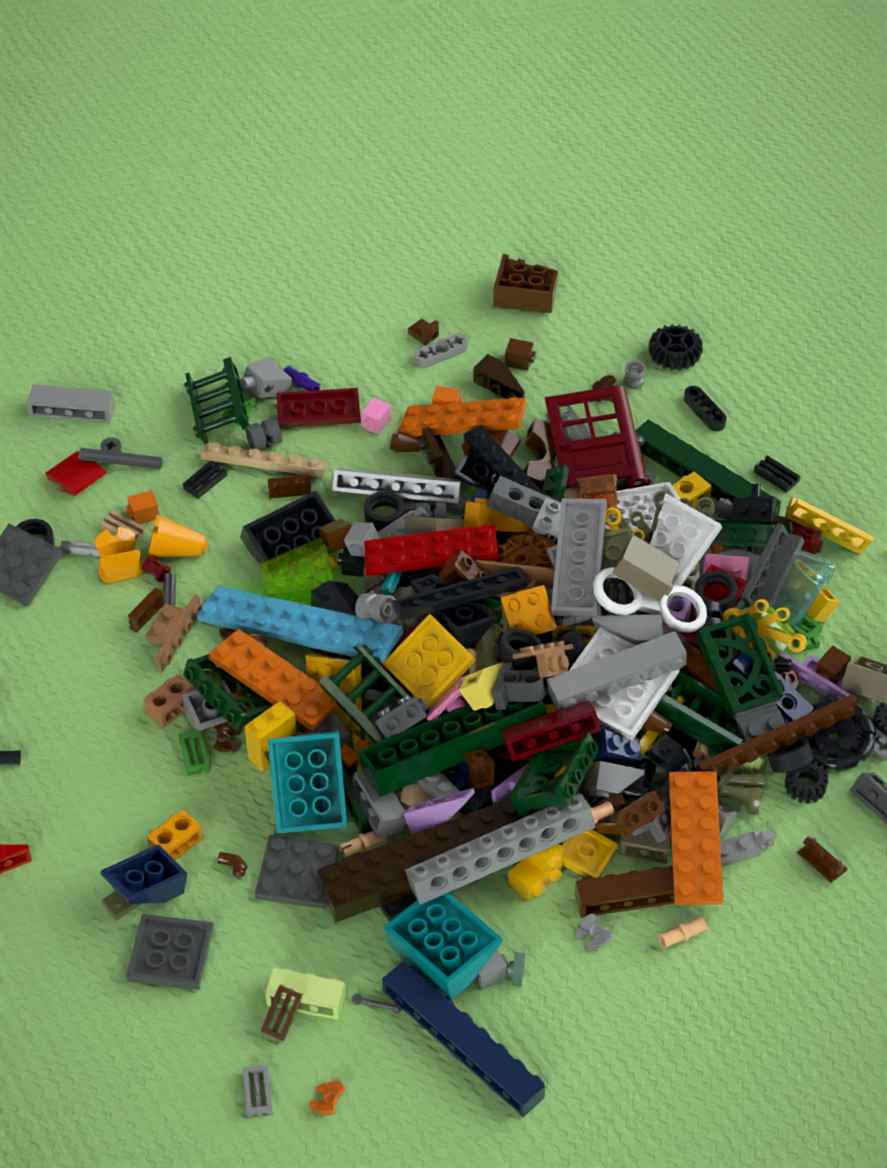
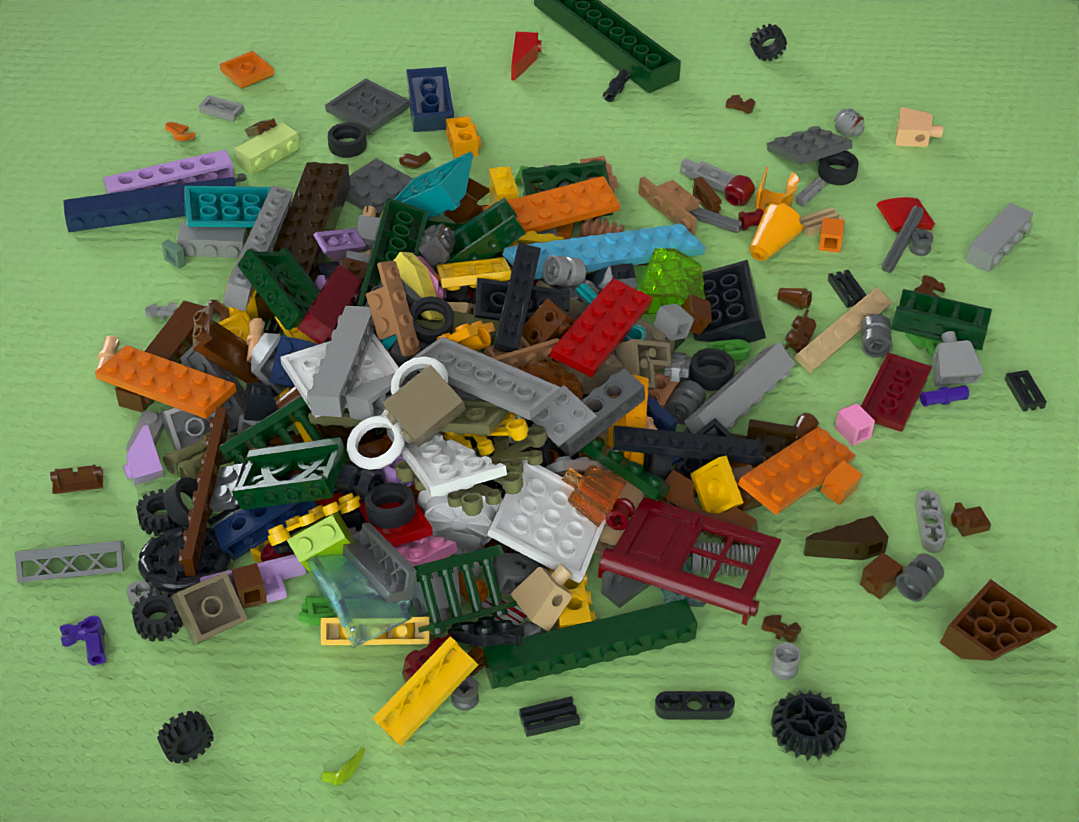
camera: 120 degrees right, 5 degrees down
(107, 624) = (712, 175): none -> light grey hinge
(119, 591) = (739, 190): none -> dark red head
(168, 433) = (928, 284): none -> reddish brown piece
(175, 1106) = (246, 69): none -> orange plate
(243, 950) = (347, 149): none -> black tyre
(245, 501) = (796, 297): none -> reddish brown cone
(260, 344) = (1021, 391): none -> black tile
(347, 513) = (736, 348): none -> bright green plate
(367, 1011) = (188, 170): none -> lavender brick
(503, 331) = (919, 577): none -> dark grey wheel
(523, 445) = (717, 486): none -> yellow plate
(558, 888) = (220, 309): none -> reddish brown arm
(699, 488) = (544, 595): none -> tan torso
(773, 817) = (142, 459): none -> lavender slope

